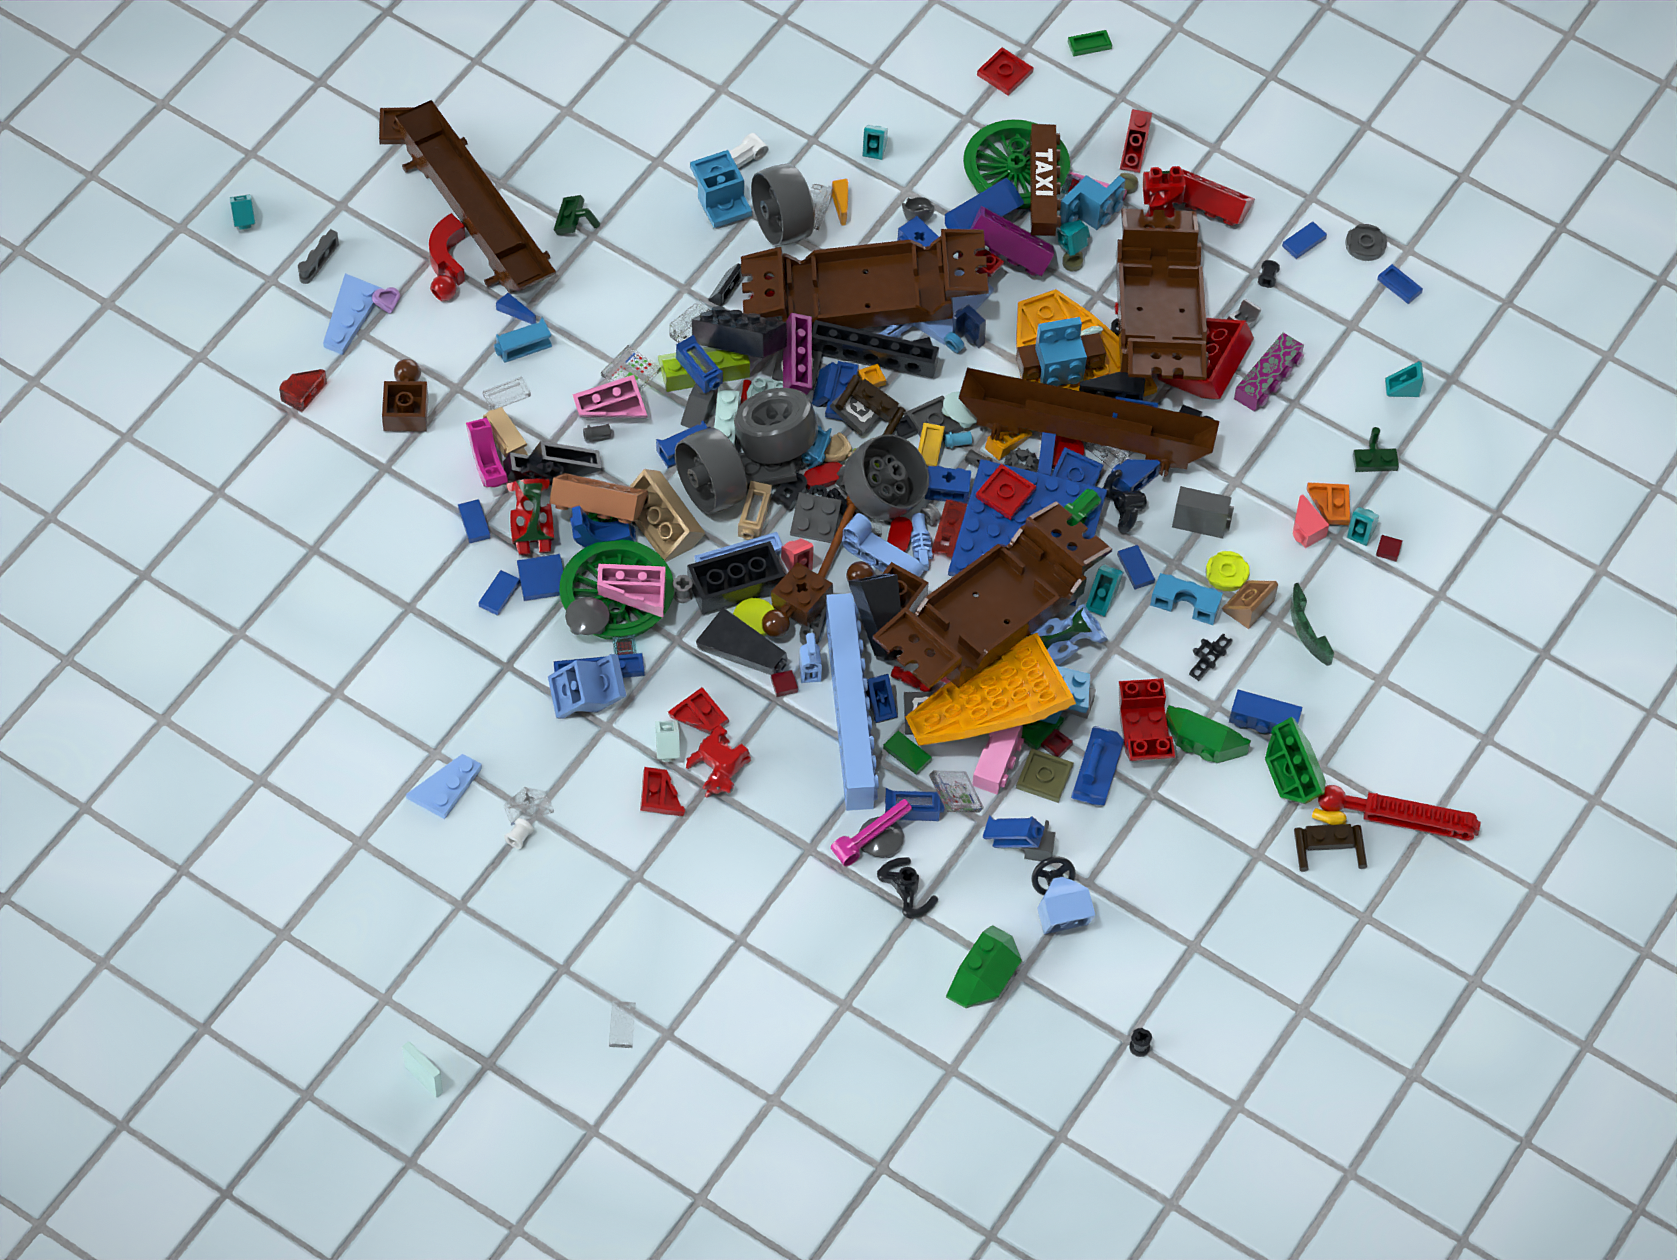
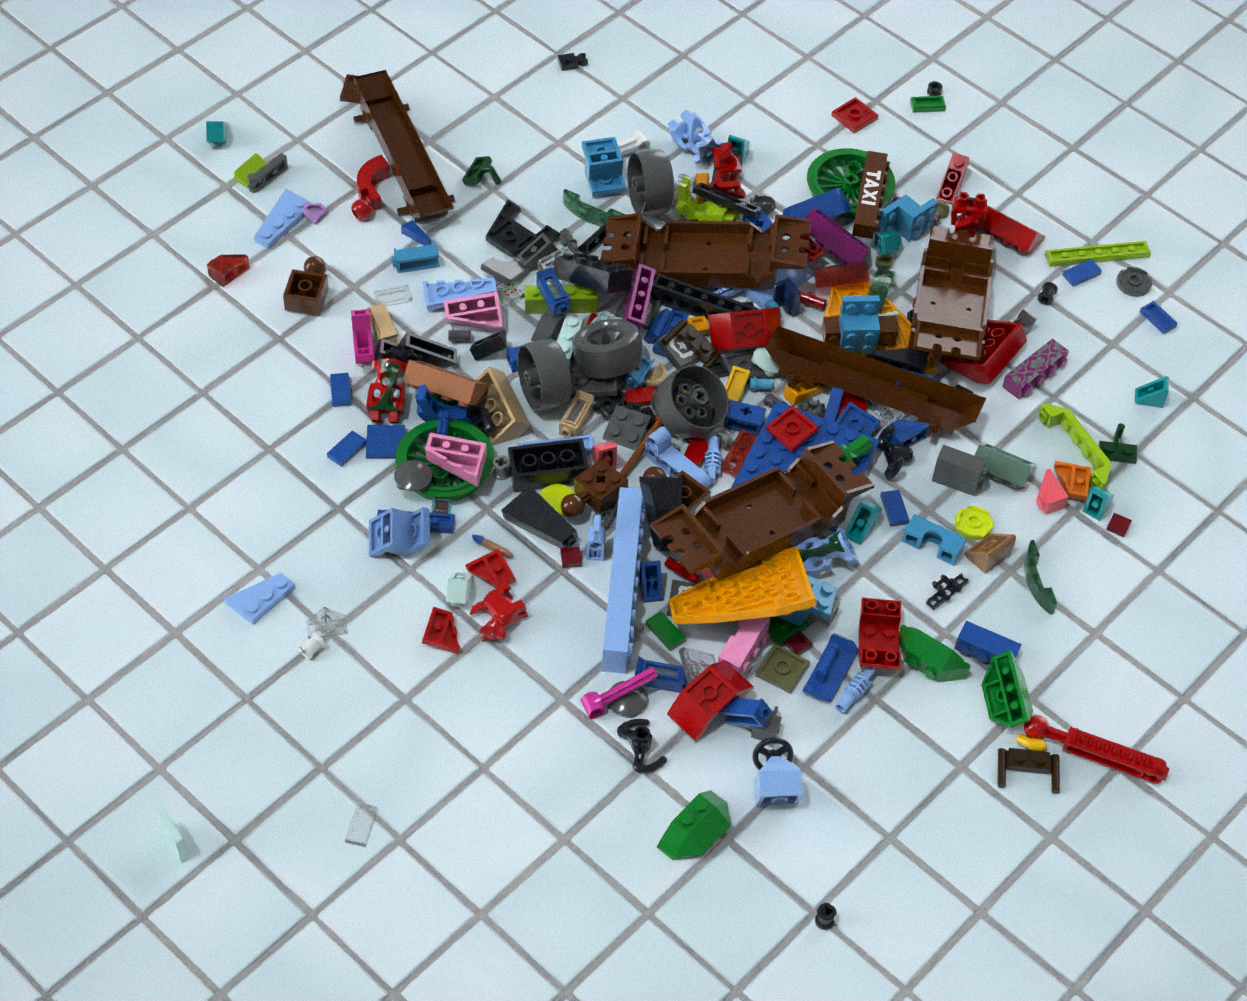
camera: 10 degrees right, 5 degrees down
(295, 253) = (250, 166): none -> lime slope
(564, 382) = (439, 292): none -> light blue wing
(606, 548) = (443, 423): none -> blue axle
(631, 296) = (510, 235): none -> black wing
(633, 341) = (505, 270): none -> tile
(635, 440) = (489, 345): none -> black slope
(645, 531) = (481, 416): none -> black plate
(648, 49) = (570, 61): none -> black plate
(665, 311) = (538, 249): none -> dark grey slope
(679, 679) = (491, 545): none -> medium nougat piece
(699, 292) = (568, 240): none -> dark grey axle
(711, 250) = (585, 211): none -> clear green slope
(811, 123) = (688, 129): none -> light blue hips
(856, 230) = (707, 211): none -> lime hips
(865, 179) = (727, 170): none -> red hips
(877, 213) = (727, 200): none -> black tile
(927, 374) = (743, 328): none -> red slope
(971, 823) = (707, 698): none -> red slope
(998, 324) = (809, 299): none -> red pin
(1026, 287) = (841, 274): none -> clear red brick
(1075, 294) = (881, 285): none -> clear green slope
(1094, 17) = (934, 88): none -> black bush
(1128, 787) = (855, 689): none -> light blue hinge
(1252, 496) = (1005, 465): none -> sand green slope
(1298, 426) = (1054, 415): none -> lime slope
(1319, 212) = (1097, 253): none -> lime tile

